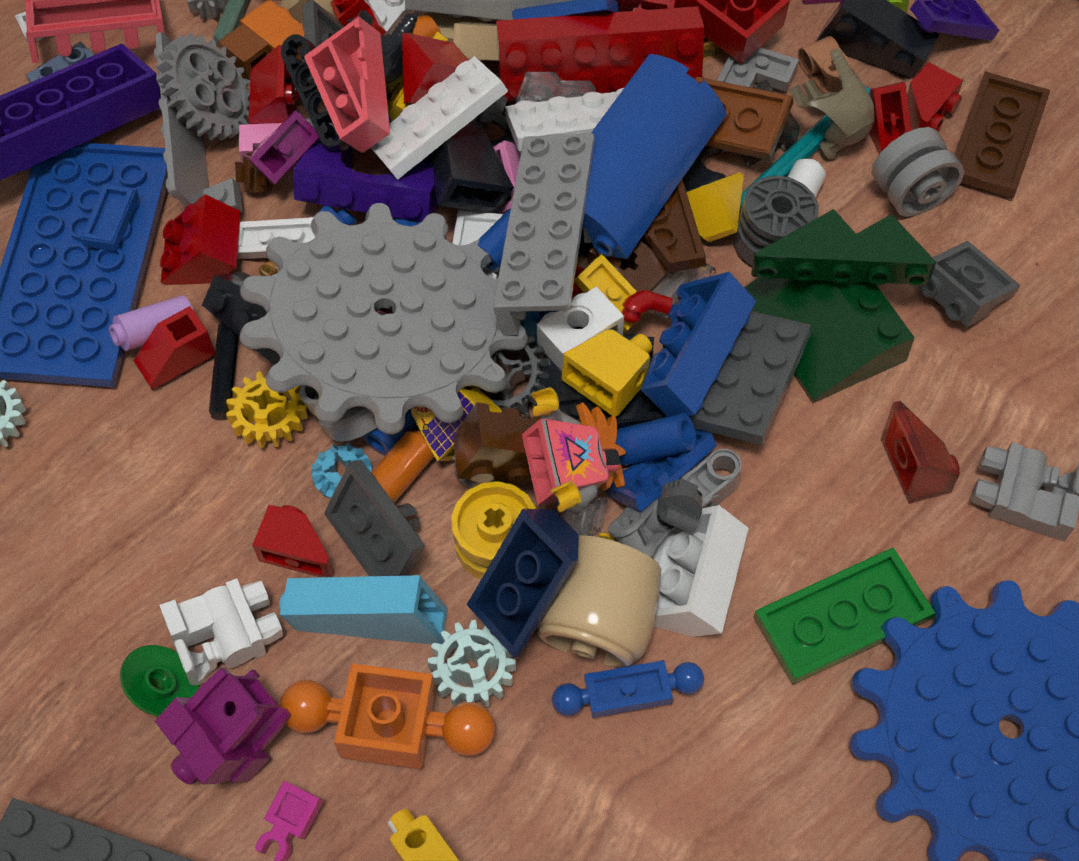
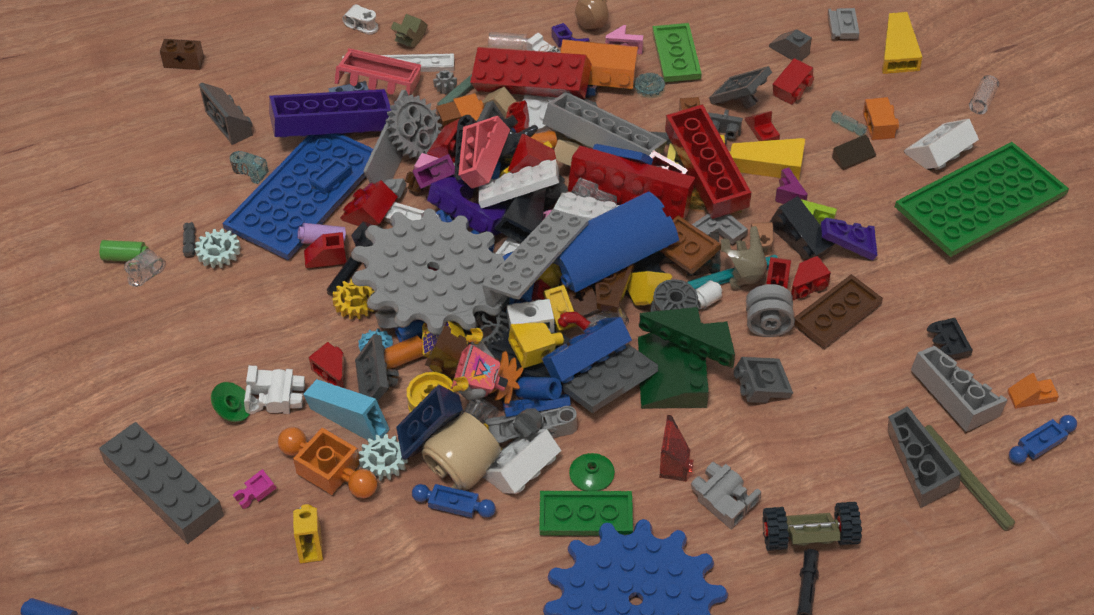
camera: 25 degrees right, 10 degrees down
(222, 729) = (246, 431): magenta piece -> none
(802, 555) = (591, 479): none -> green dish

